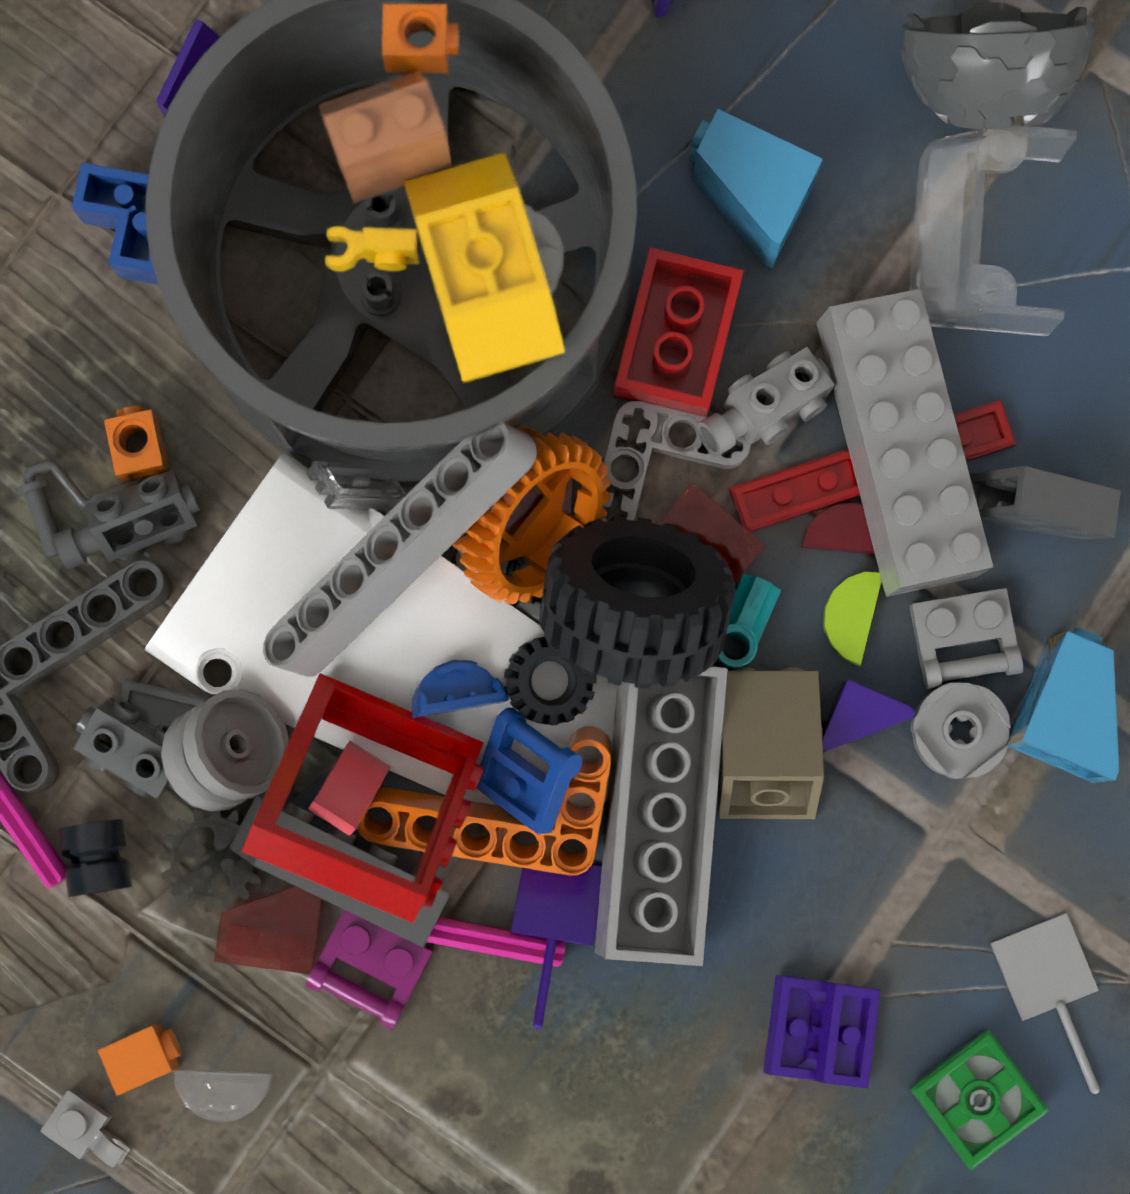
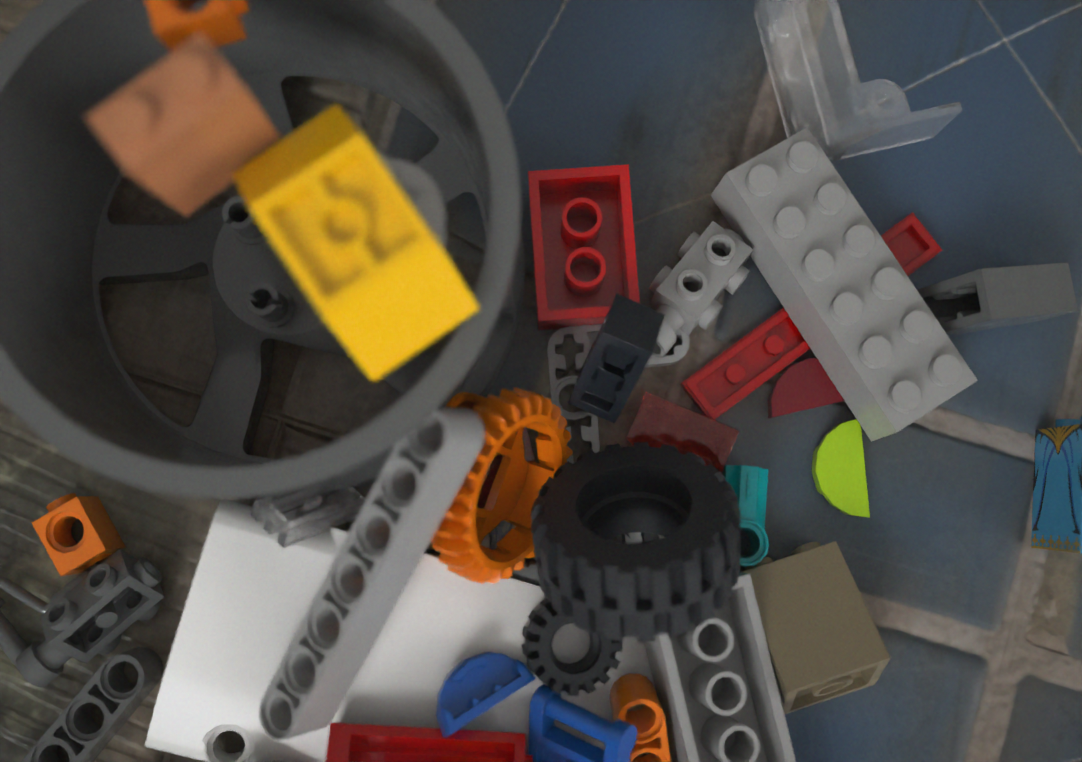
camera: 20 degrees left, 0 degrees up
(386, 247) = (230, 254): yellow plate -> none
(672, 440) = (616, 358): none -> black brick
(753, 180) = (606, 73): dark azure slope -> none
(860, 713) = (890, 569): dark purple slope -> none
(963, 622) = (953, 440): light grey plate -> none
(988, 733) = (1018, 543): light grey plate -> none

